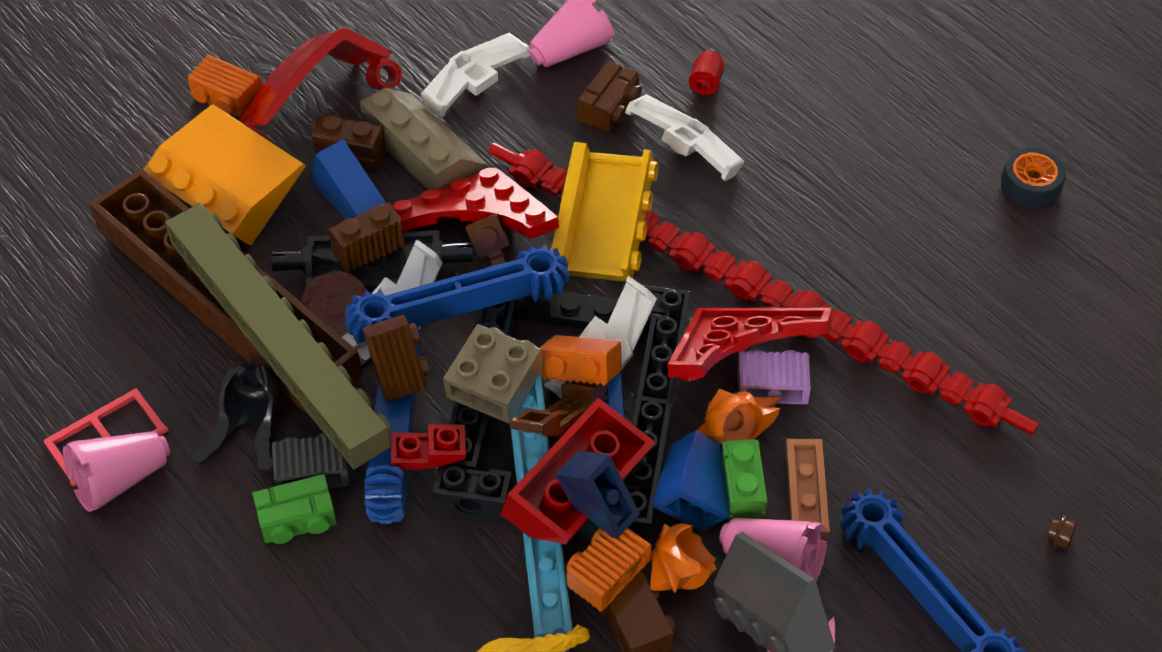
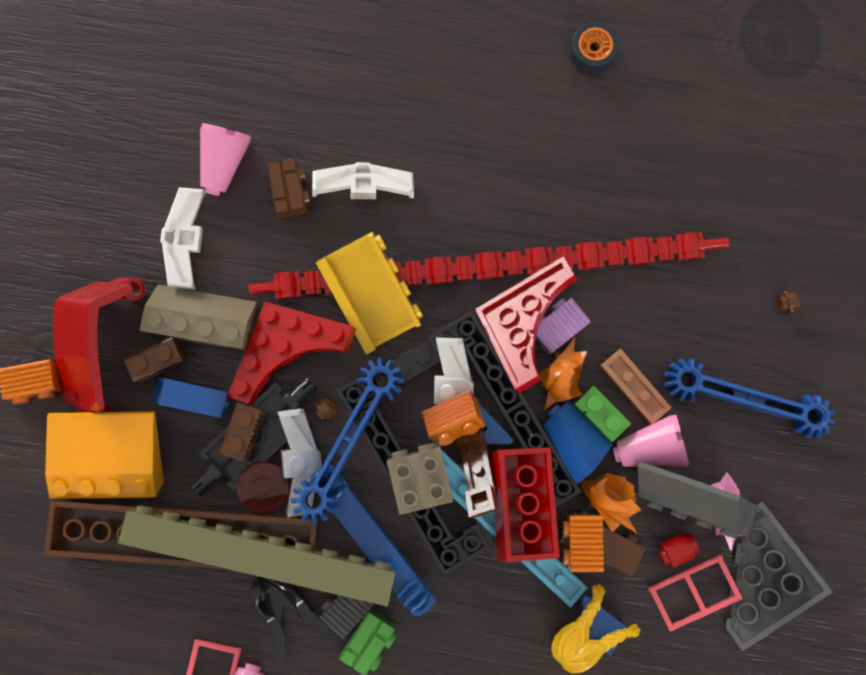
camera: 40 degrees left, 30 degrees up
(396, 357) = (353, 518): reddish brown brick -> none
(427, 450) = (419, 553): red slope -> none
(489, 238) = (316, 367): reddish brown plate -> none
(598, 491) = (555, 519): dark blue slope -> none
(706, 73) = (332, 118): red brick -> none

